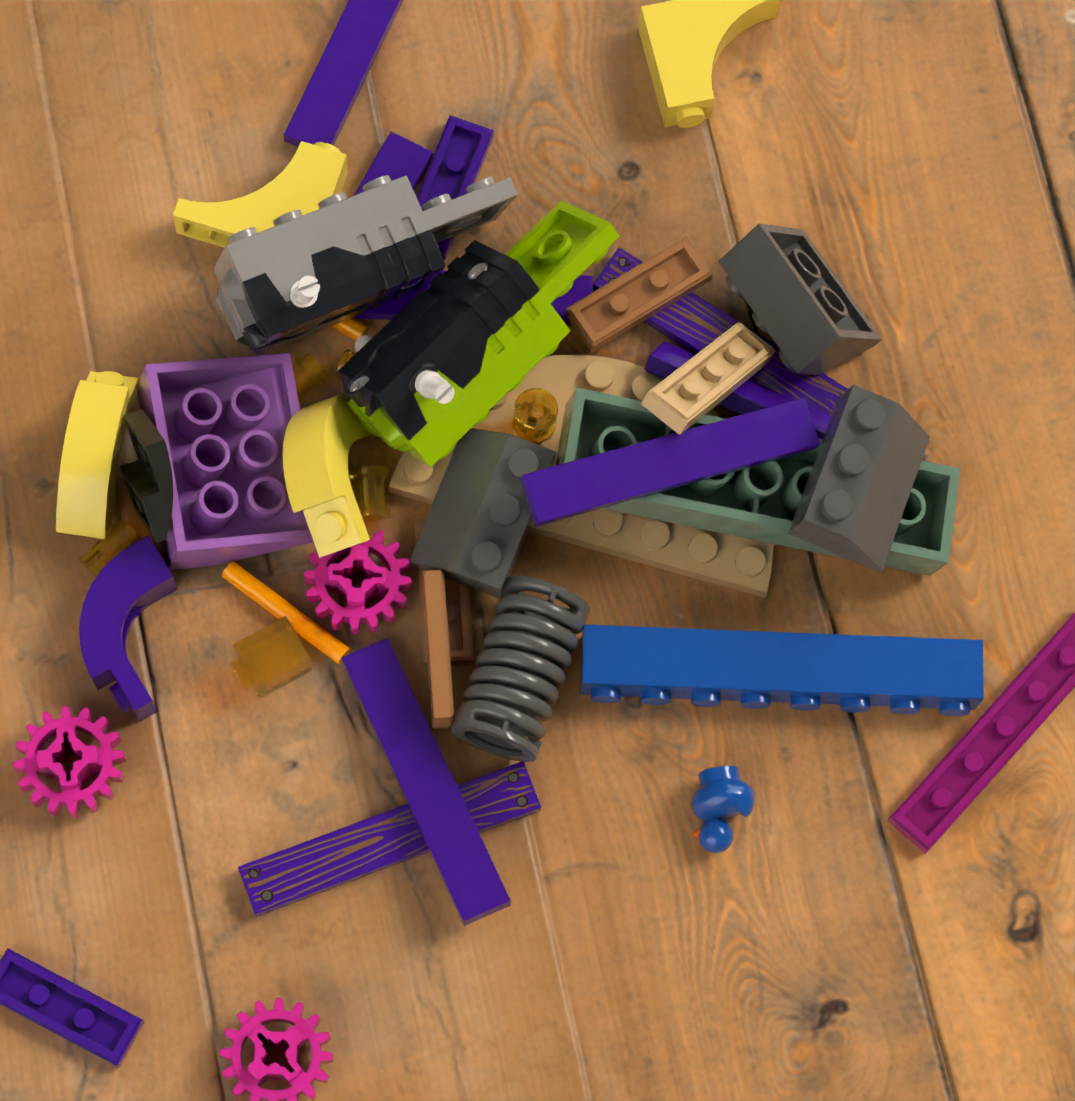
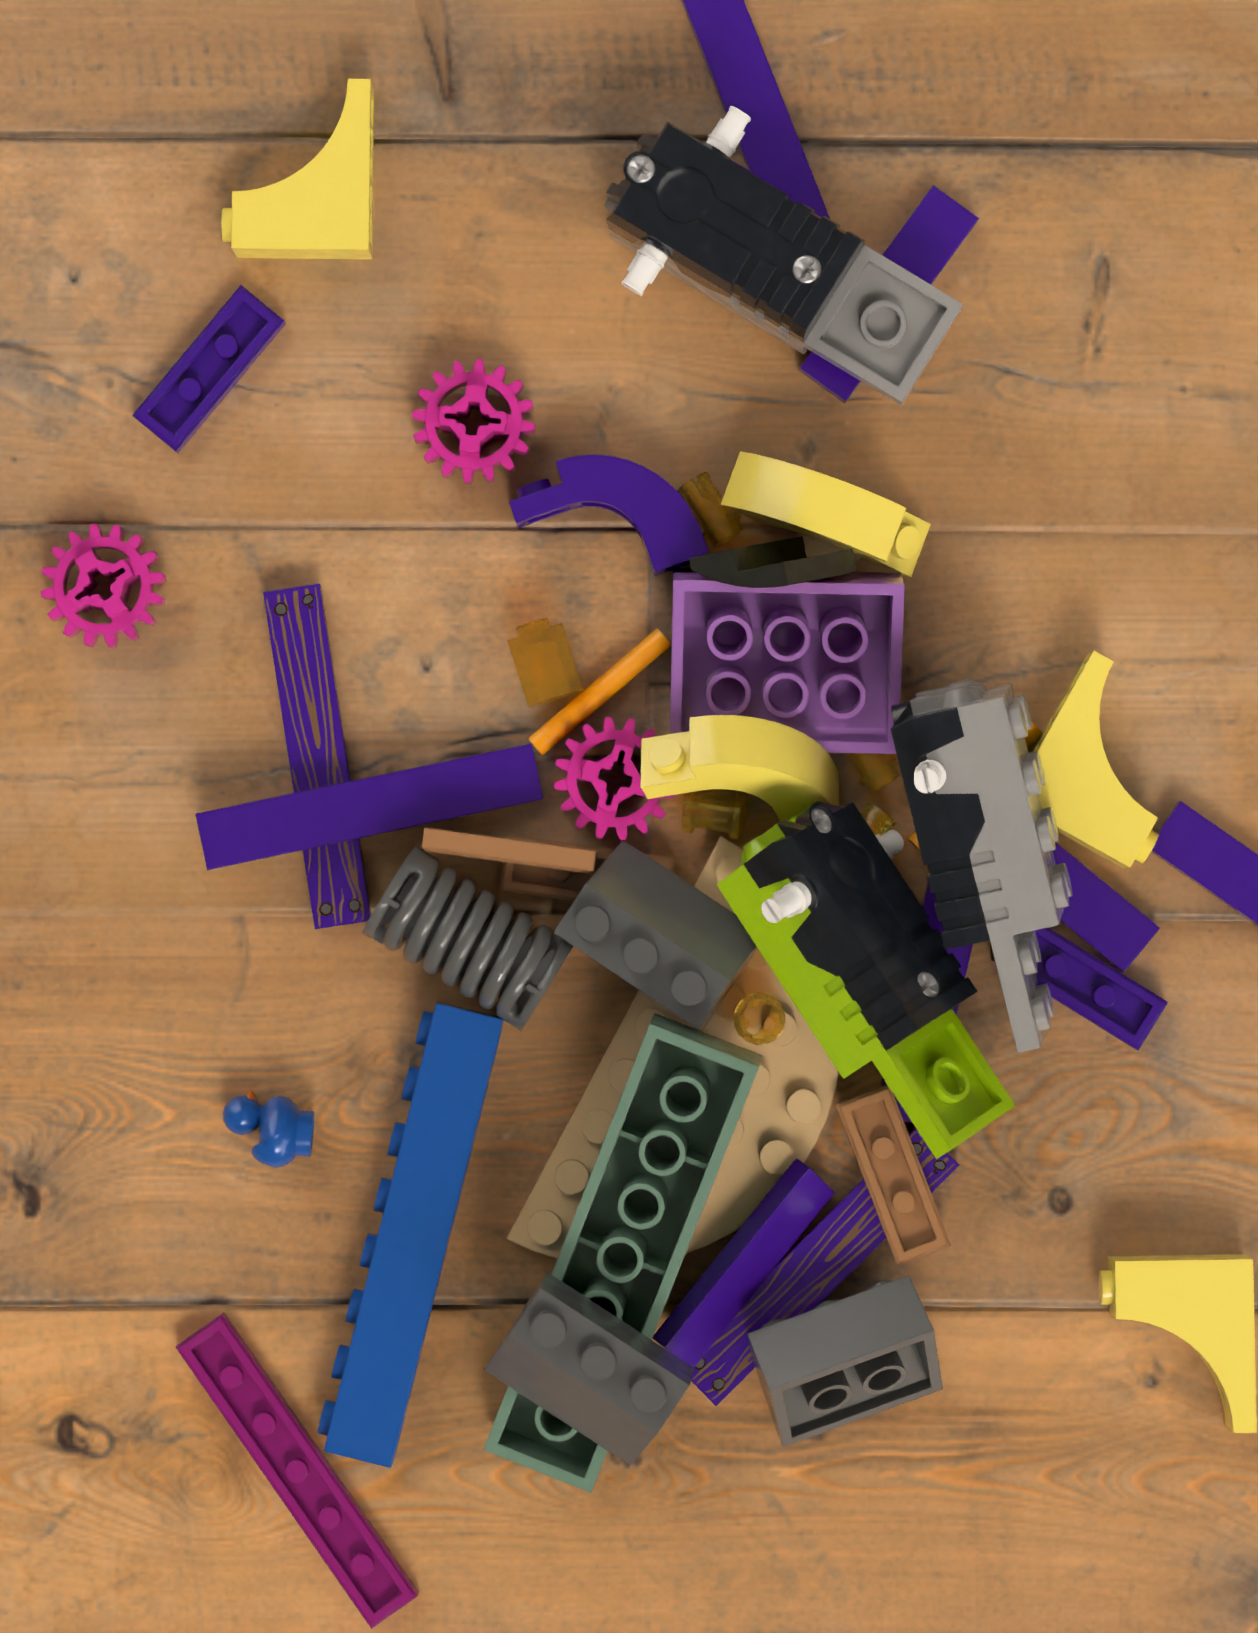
camera: 110 degrees right, 15 degrees up
(669, 462) = (649, 1155): dark purple tile -> none
(708, 378) = (752, 1225): tan tile -> none

